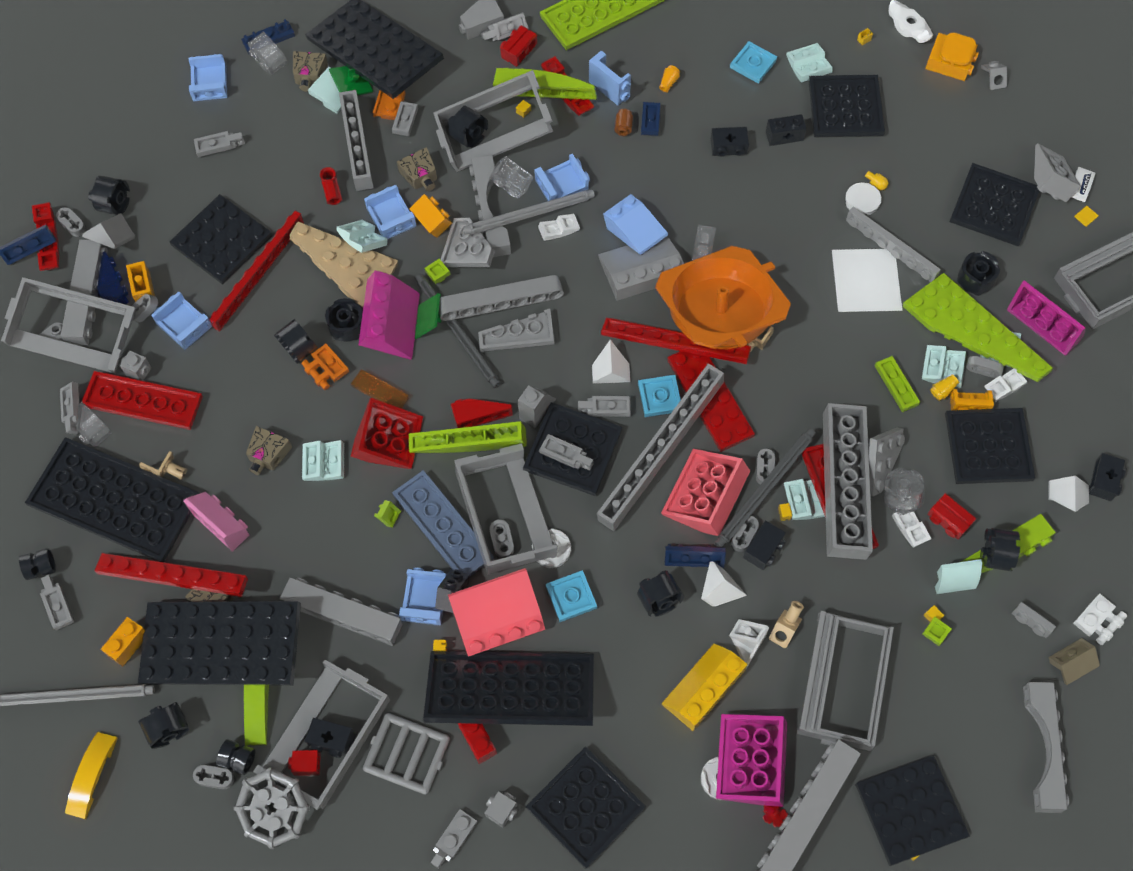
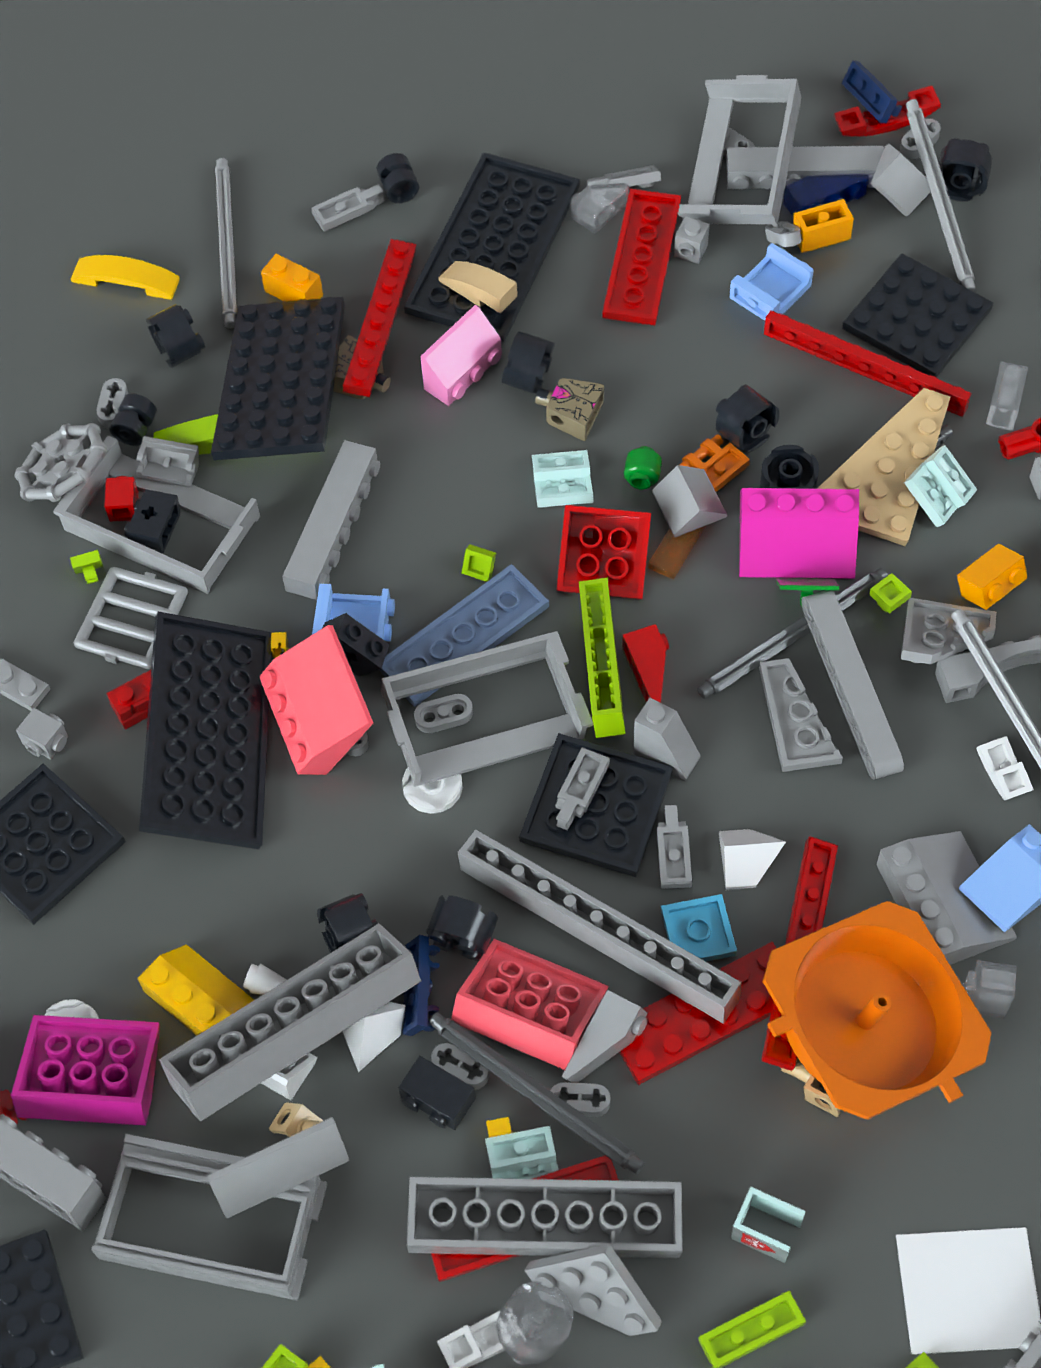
camera: 90 degrees right, 5 degrees down
(136, 209) = (940, 195): none -> light grey piece
(154, 504) = (480, 285): none -> tan slope
(166, 467) = (540, 294): tan bracket -> none
(228, 475) = (528, 362): none -> black brick
(277, 729) = (167, 461): none -> light grey hinge
(296, 193) = (1007, 395): none -> clear brick
(324, 408) = (642, 467): none -> green head
(356, 381) = (688, 500): none -> light grey slope
(361, 785) = (86, 564): none -> lime tile
(389, 212) = (996, 520): light blue panel -> none
(571, 596) = (353, 811): medium azure plate -> none
(659, 526) = (461, 926): none -> black brick
(690, 651) = (262, 979): none -> white cone
(729, 442) = (608, 1033): none -> light grey slope
(733, 620) = (289, 1021): none -> light grey brick
(825, 627) = (278, 1168): none -> light grey slope
(842, 383) = (773, 1207): none -> light aqua piece

